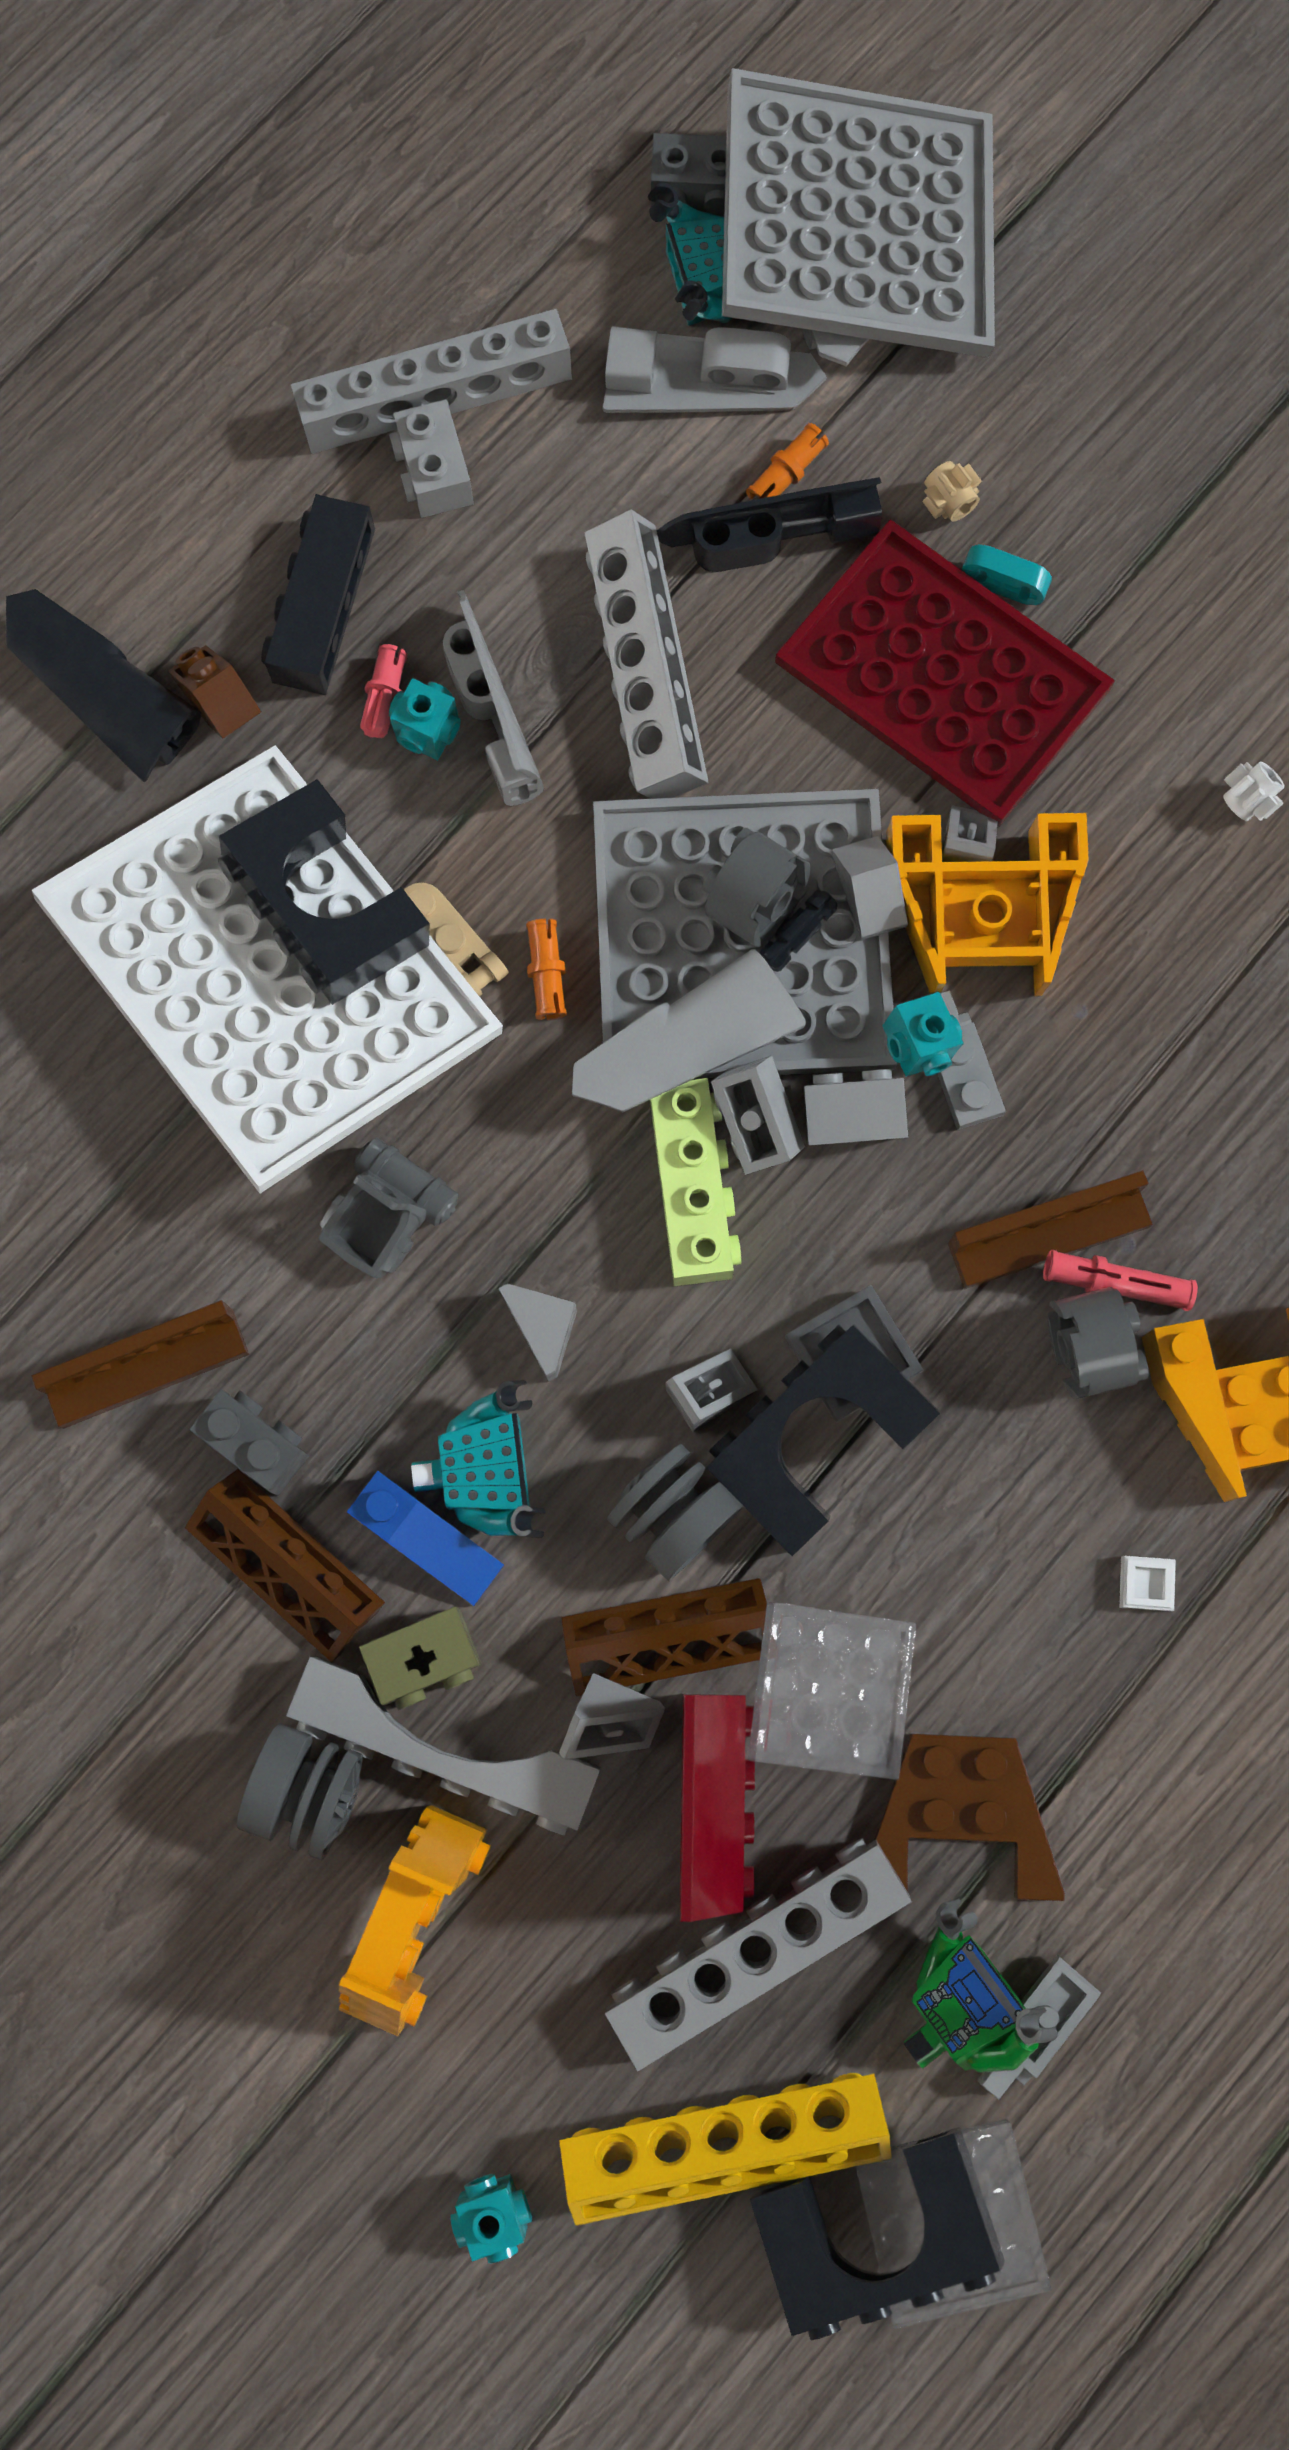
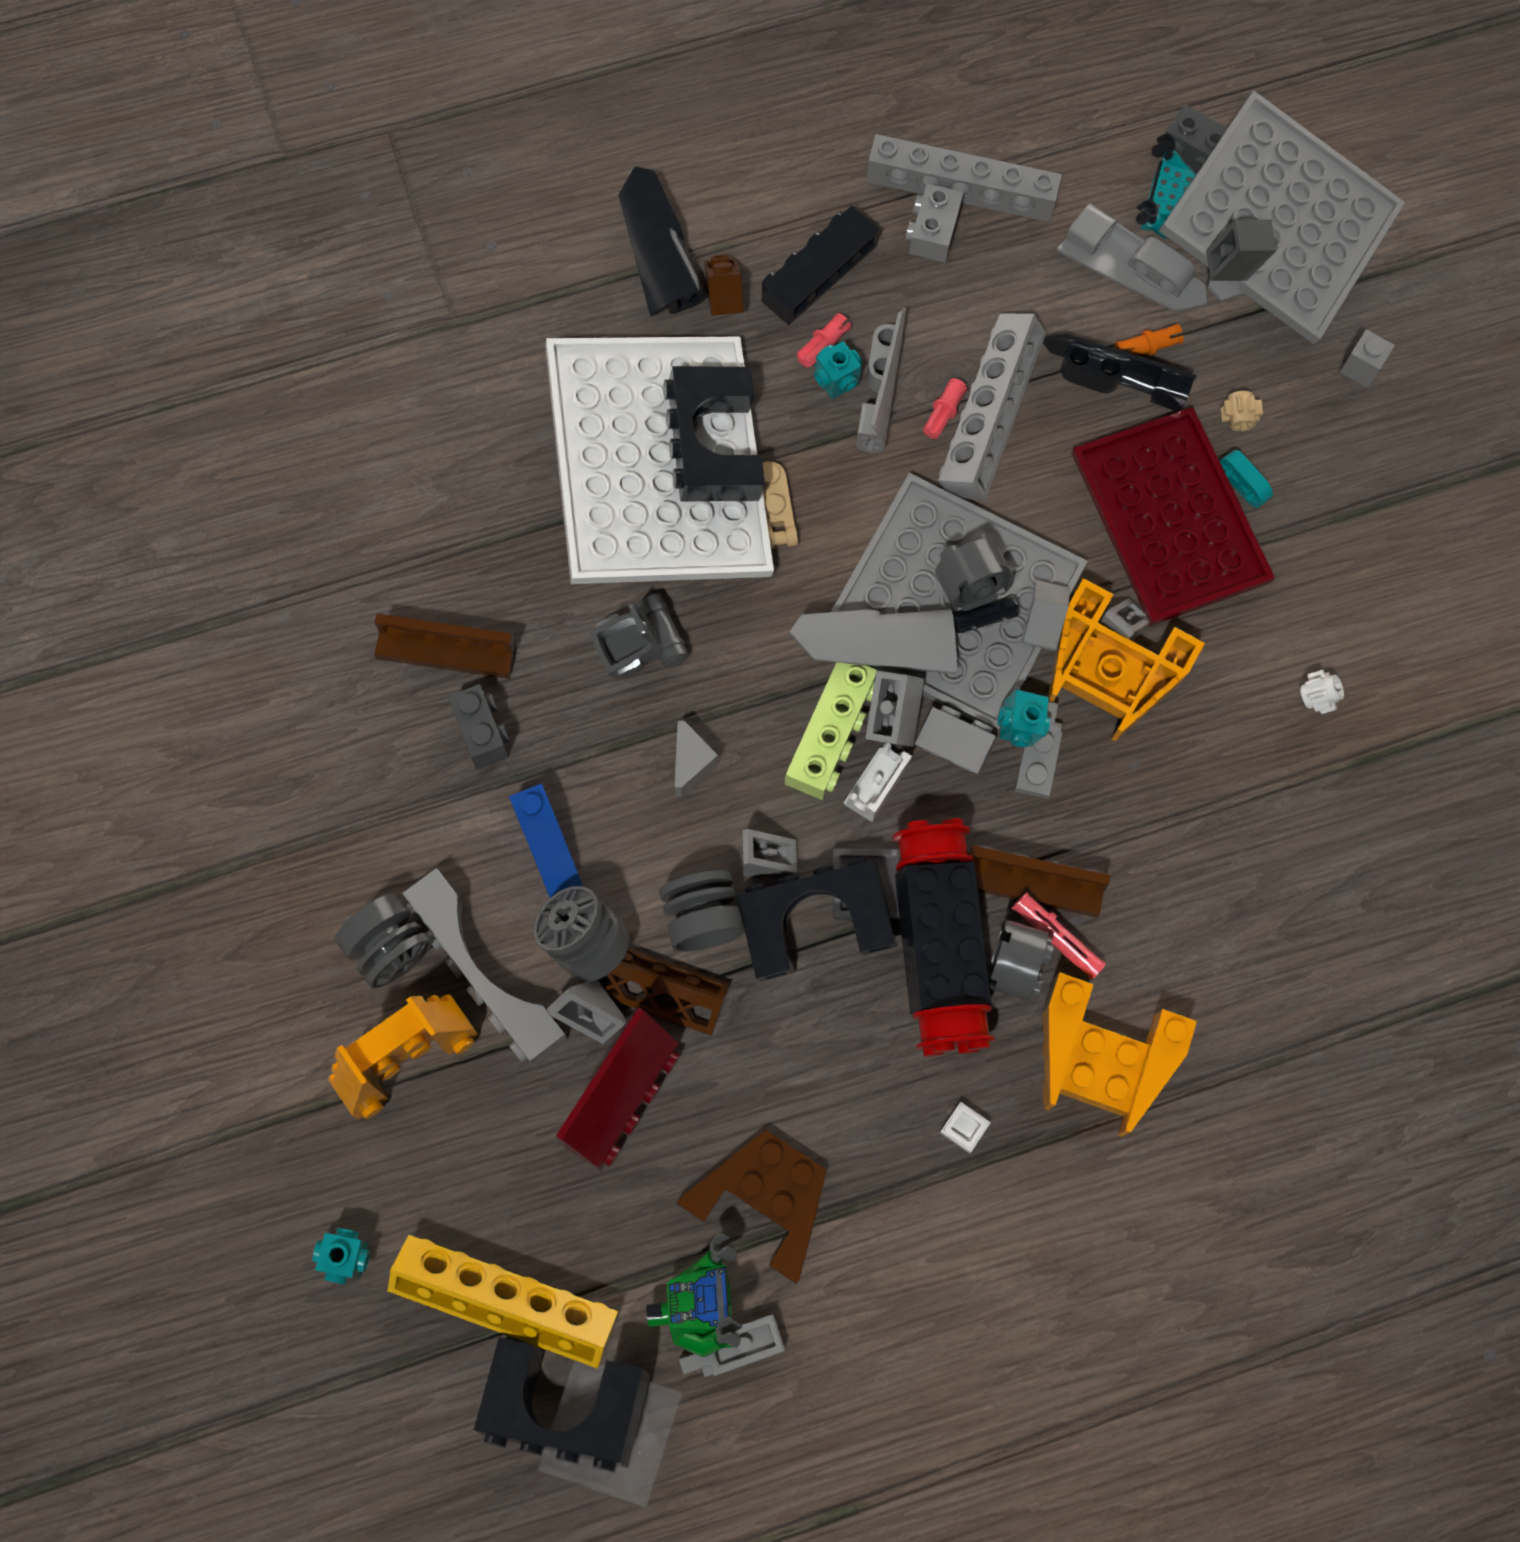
camera: 25 degrees right, 5 degrees down
(287, 1556) = (459, 804): reddish brown fence -> none
(391, 1655) = (486, 897): olive brick -> none
(484, 1466) = (606, 819): teal torso -> none
(545, 1632) = (581, 933): none -> dark grey wheel
(546, 969) = (821, 555): orange pin -> none
(586, 692) = (945, 408): none -> coral axle
(651, 2036) = (497, 1206): light grey brick -> none
(788, 1217) = (877, 782): none -> white hinge
(832, 1691) = (732, 1072): clear plate -> none
(844, 283) = (1241, 249): none -> dark grey brick
(990, 1371) = (942, 938): none -> black brick
(1063, 339) = (1367, 358): none -> light grey brick

